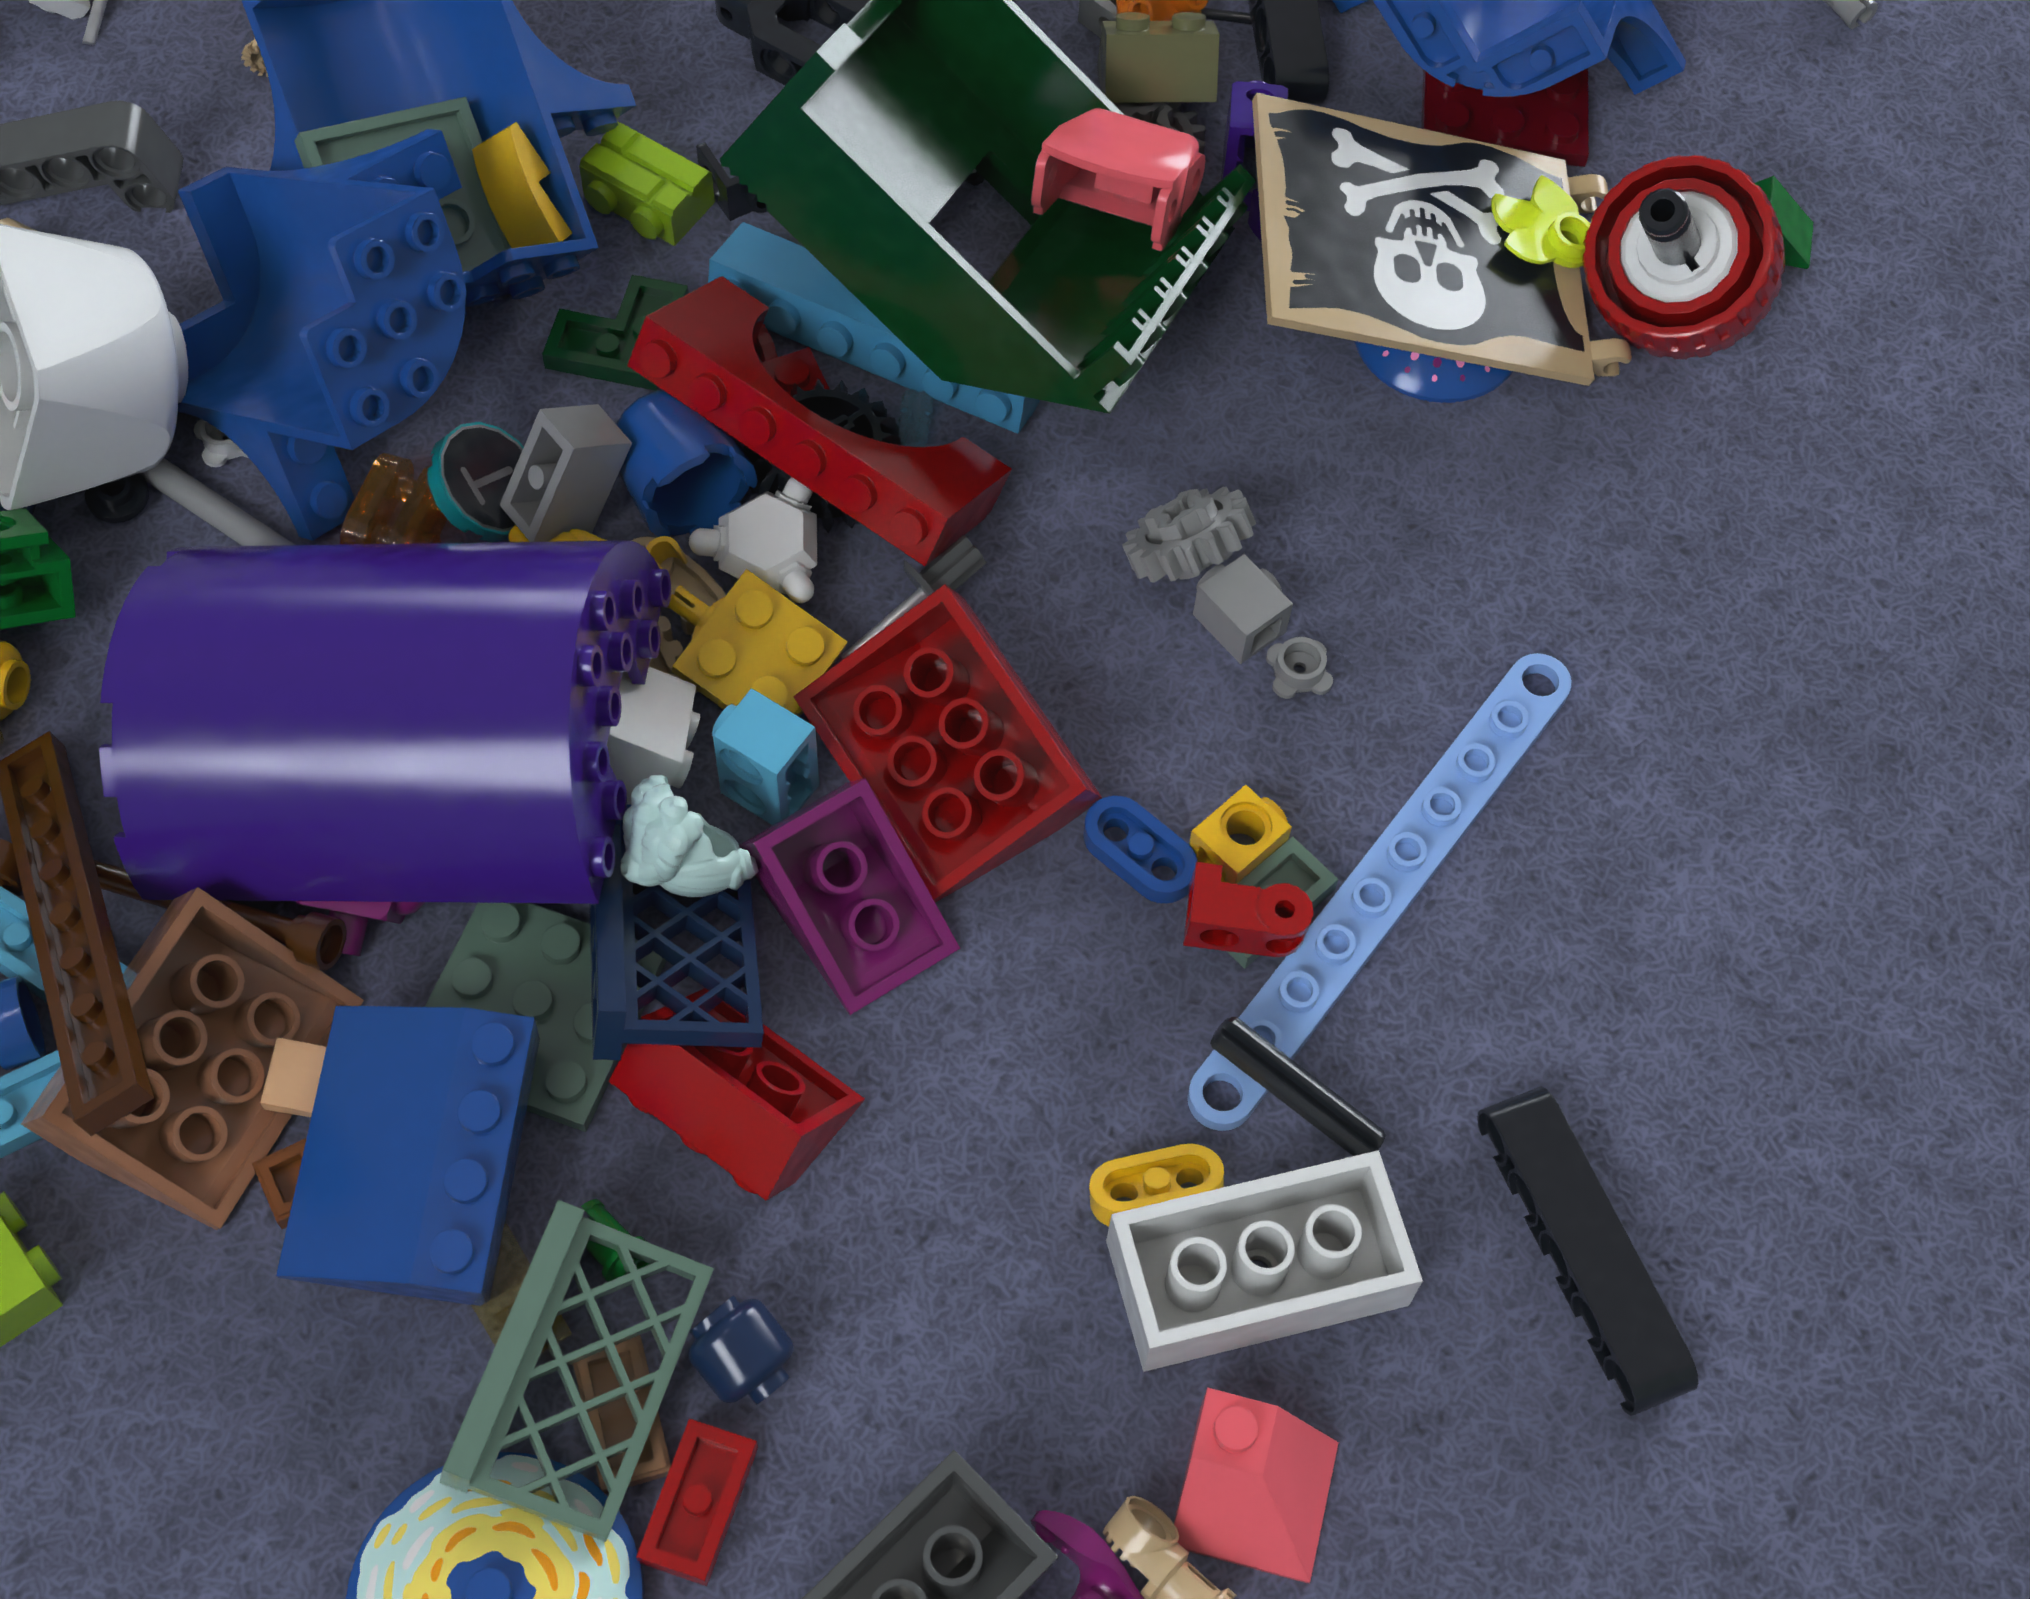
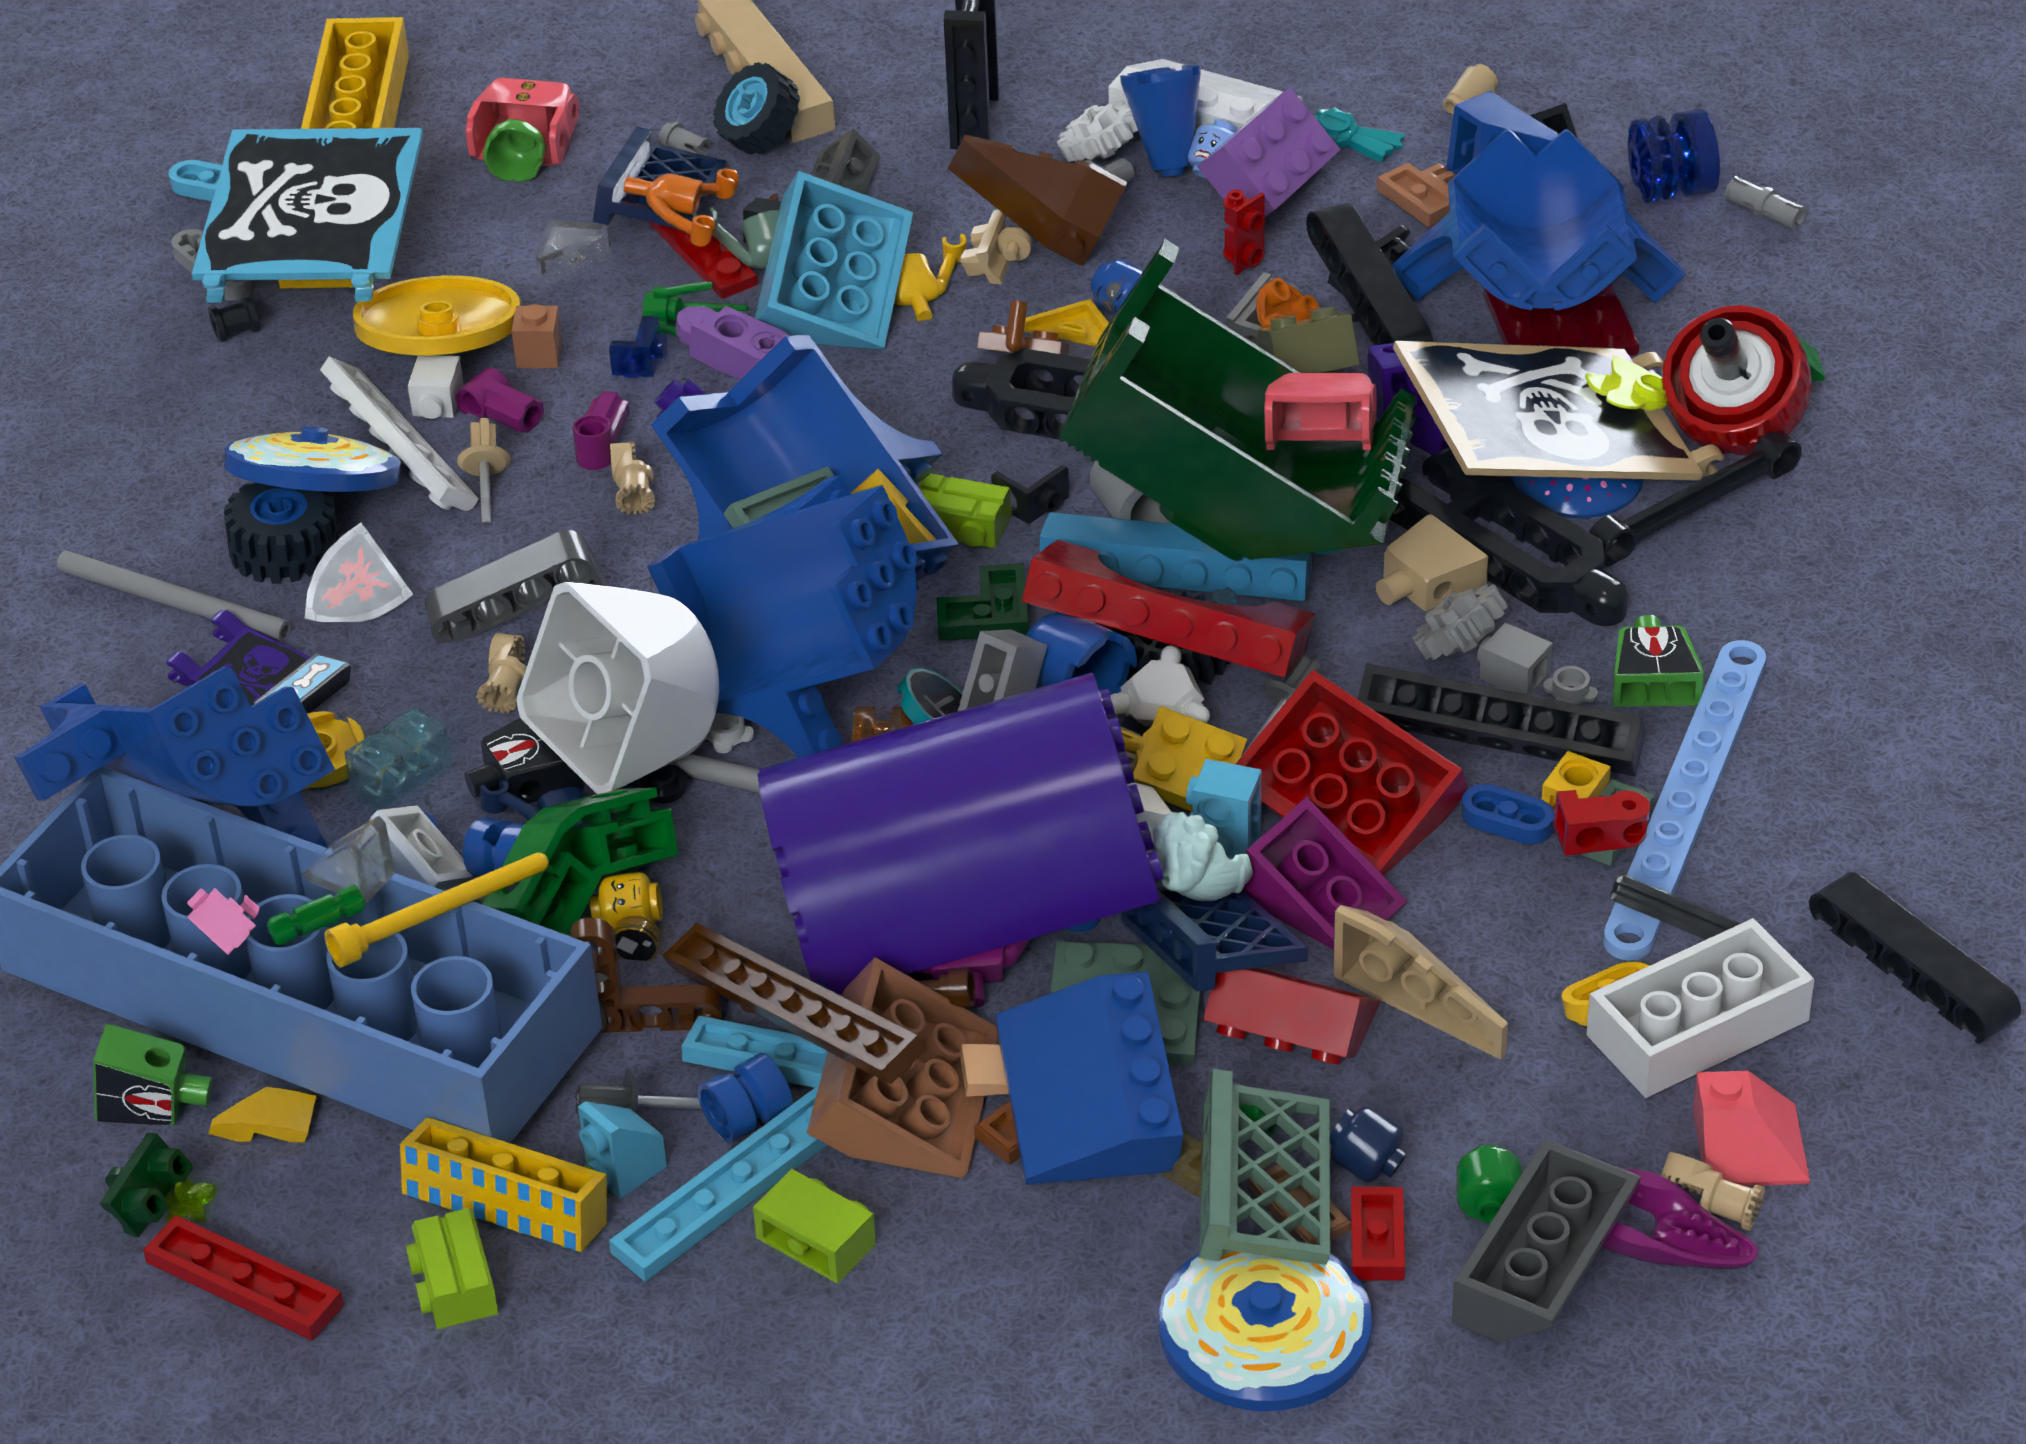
camera: 10 degrees left, 20 degrees down
(872, 1468) = (1485, 1180): none -> green head
(888, 1056) = (1406, 975): none -> tan wedge
(1182, 706) = (1503, 718): none -> black brick
(1191, 429) = (1430, 565): none -> tan torso
(1368, 514) = (1486, 497): none -> black piece
(1418, 666) = (1656, 666): none -> torso
(1446, 450) = (1771, 455): none -> black piece

